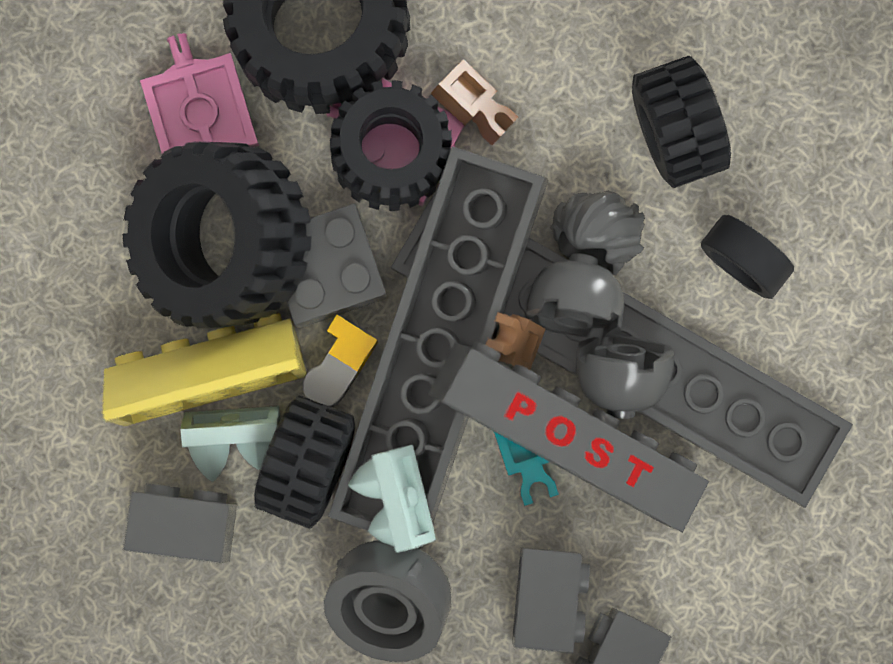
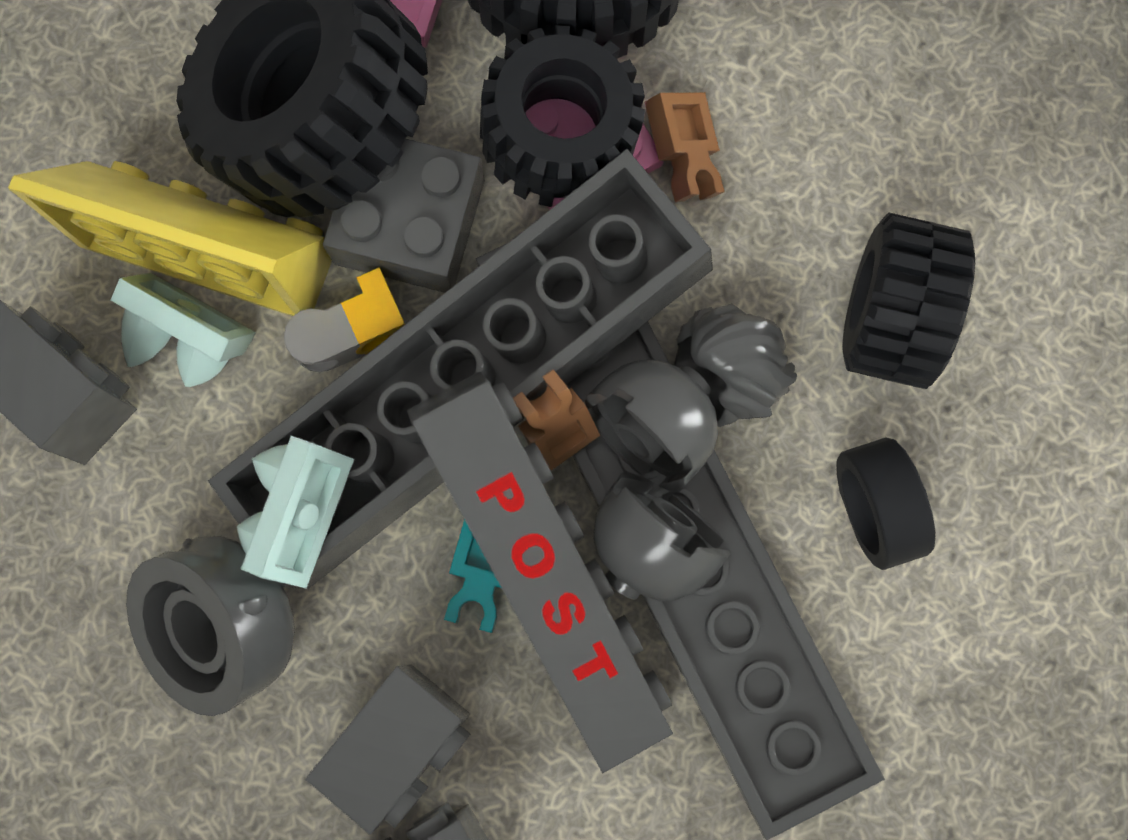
camera: 30 degrees right, 5 degrees down
(304, 461) = (221, 398): black tyre -> none

